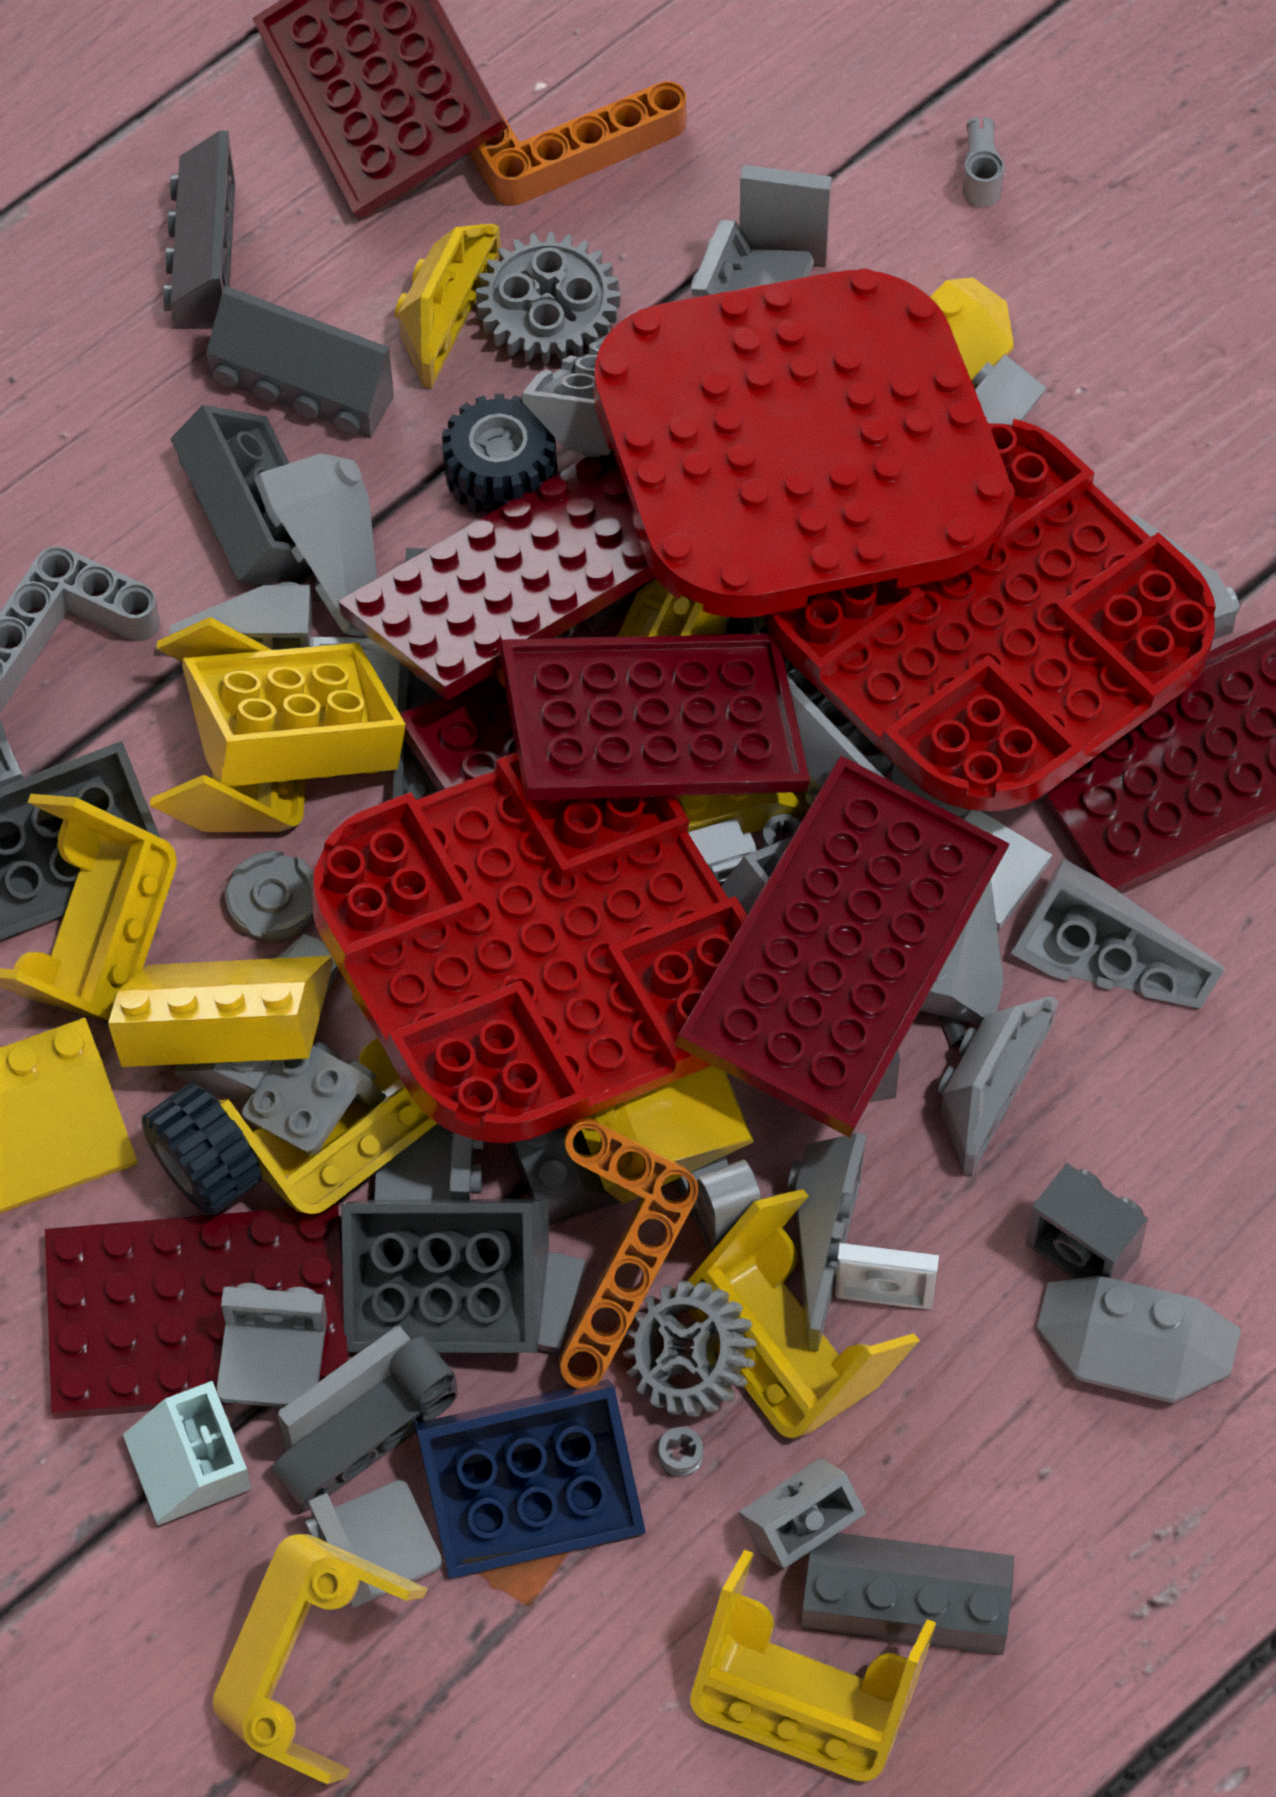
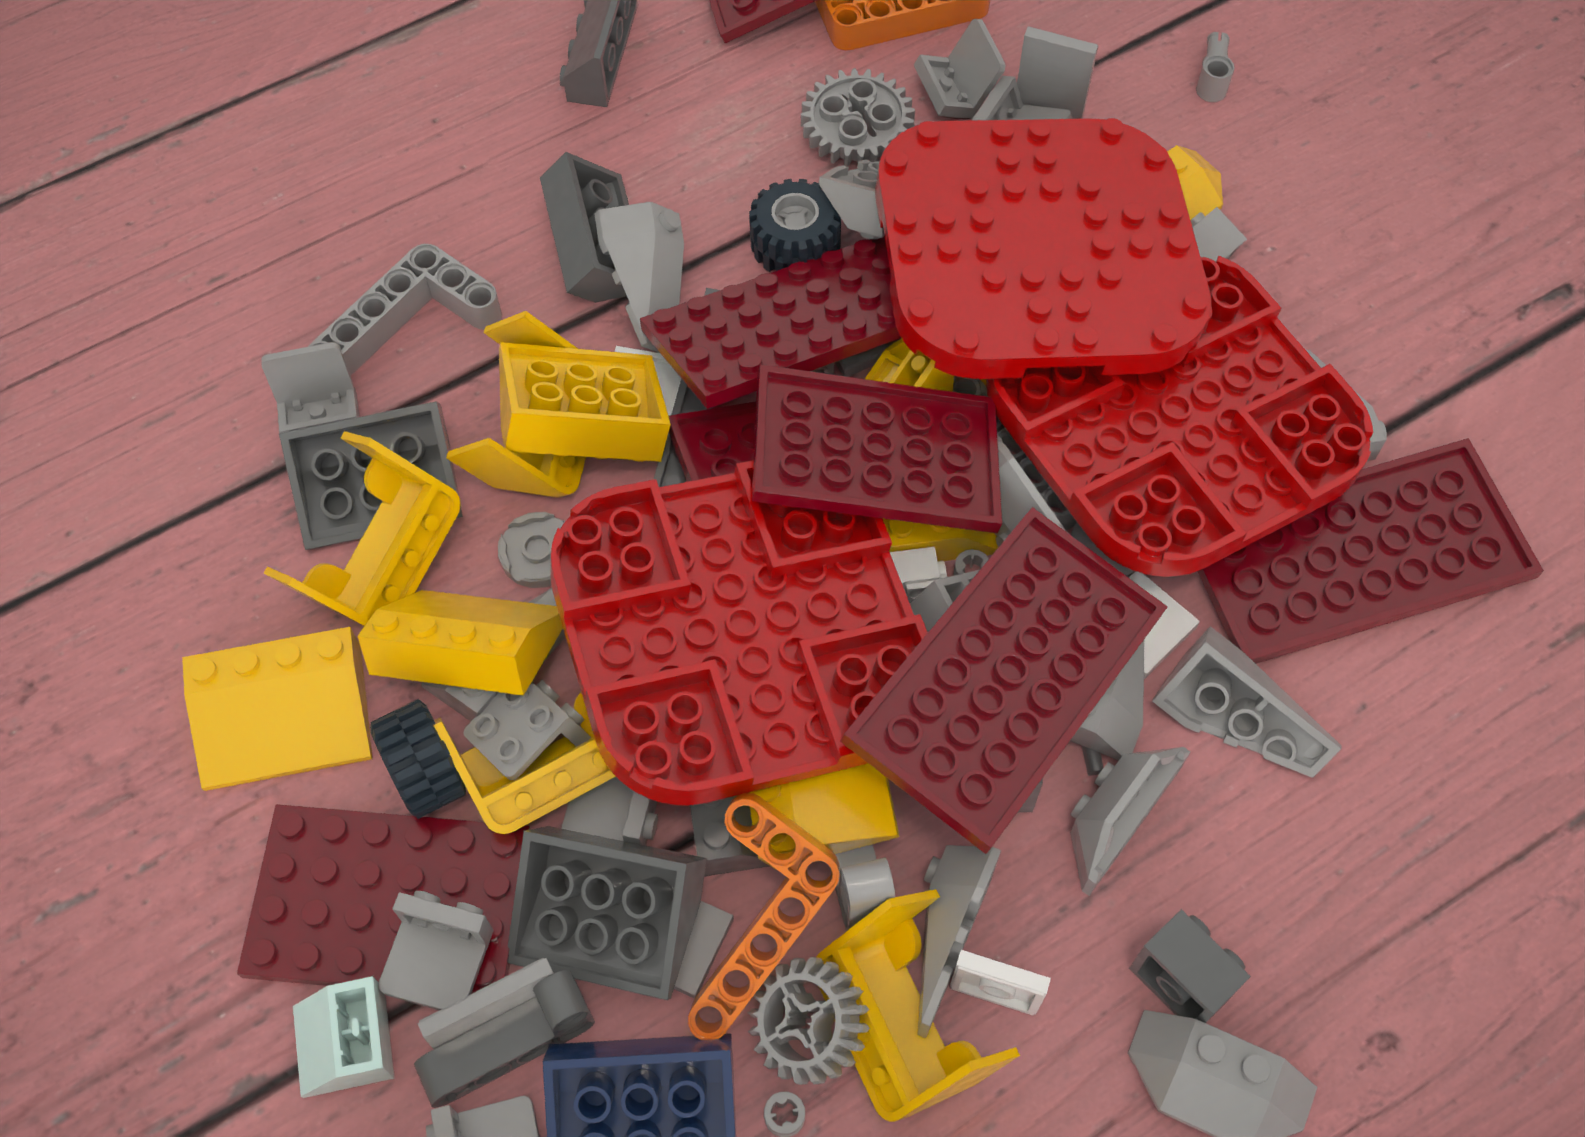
camera: 10 degrees right, 0 degrees up
(270, 614) = (585, 322): light grey slope -> none
(300, 363) = (653, 135): dark grey slope -> none
(444, 296) = (777, 103): yellow wedge -> none
(671, 225) = (964, 78): none -> light grey bracket

